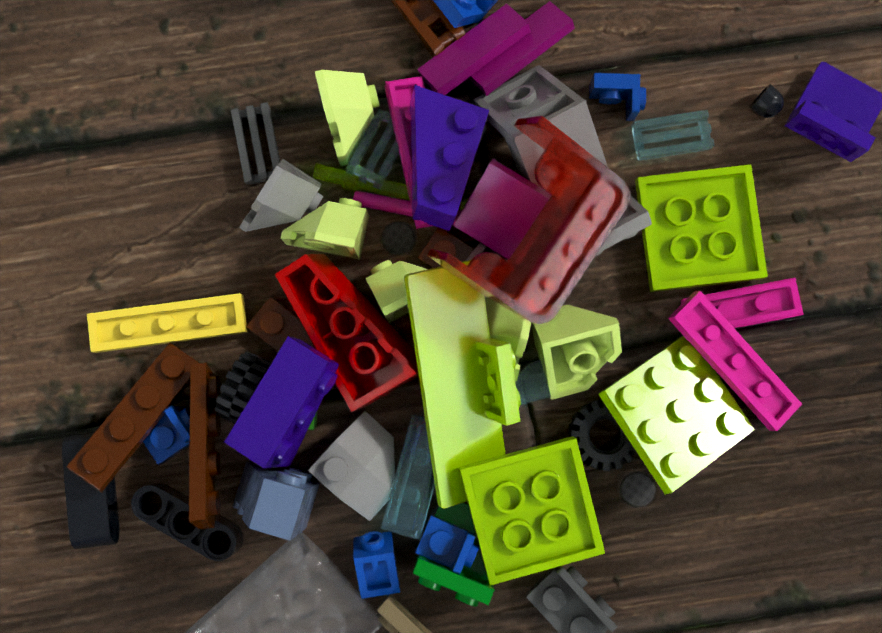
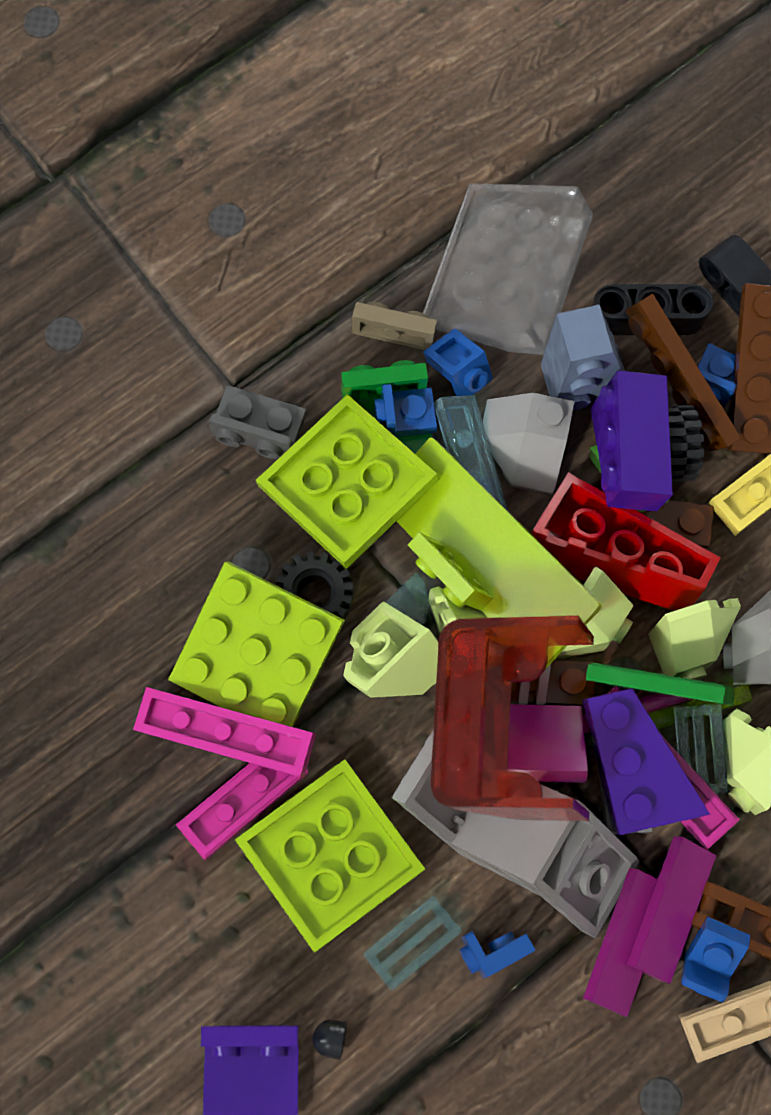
camera: 145 degrees right, 10 degrees down
(386, 201) = (661, 683): none -> green tile

